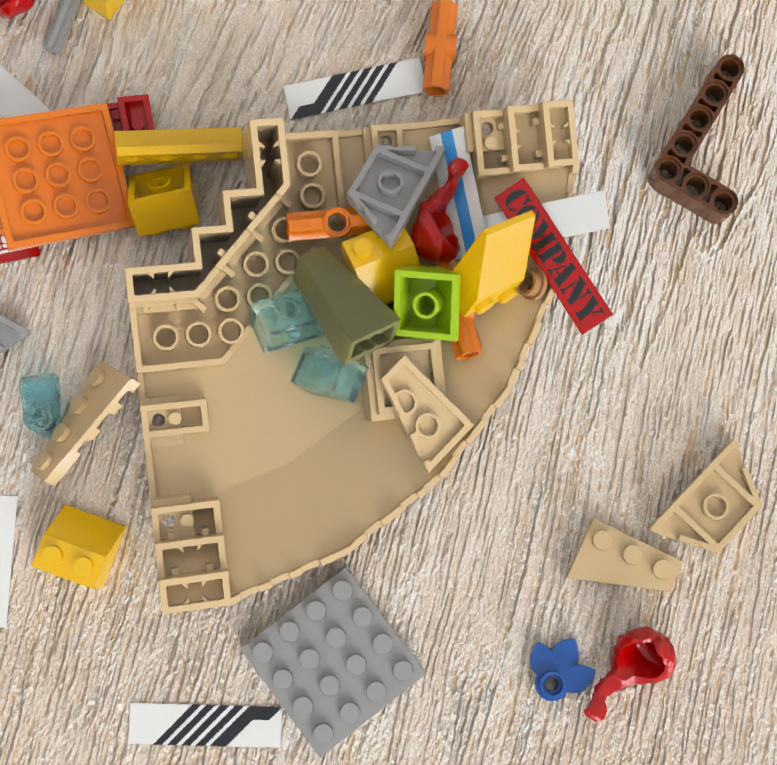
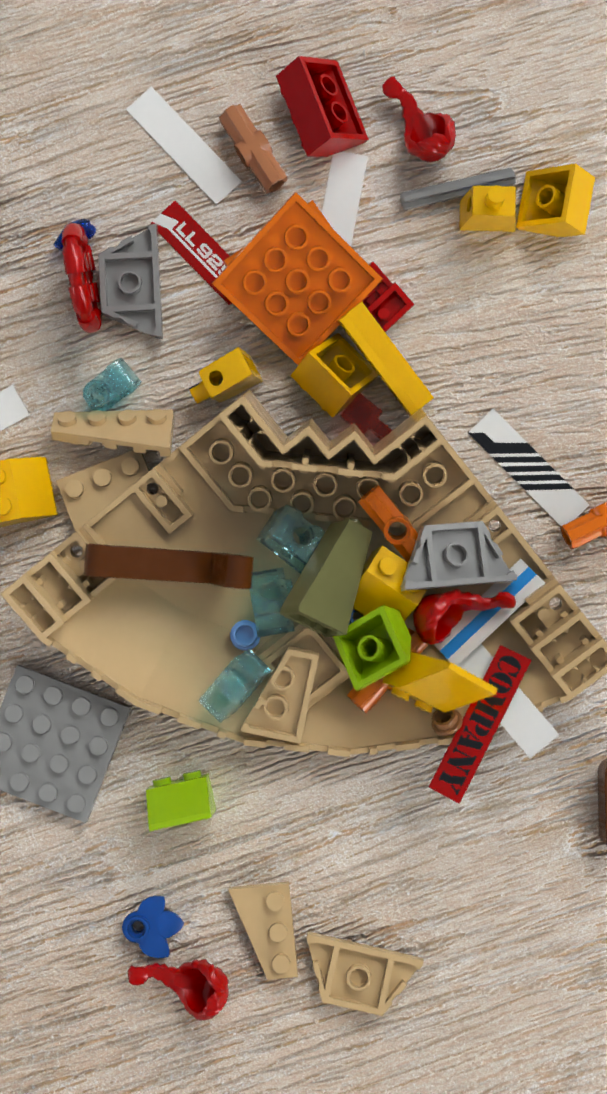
camera: 60 degrees right, 5 degrees up
(97, 281) = (237, 373): none -> yellow torso
(123, 475) = (97, 486): none -> tan wing
(209, 194) = (365, 416): none -> clear red plate
(239, 441) = (169, 565): none -> reddish brown beam
(345, 419) = (244, 635): none -> light blue plate
(384, 450) = (234, 685): none -> clear light blue brick
(459, 569) = (179, 800): none -> lime slope

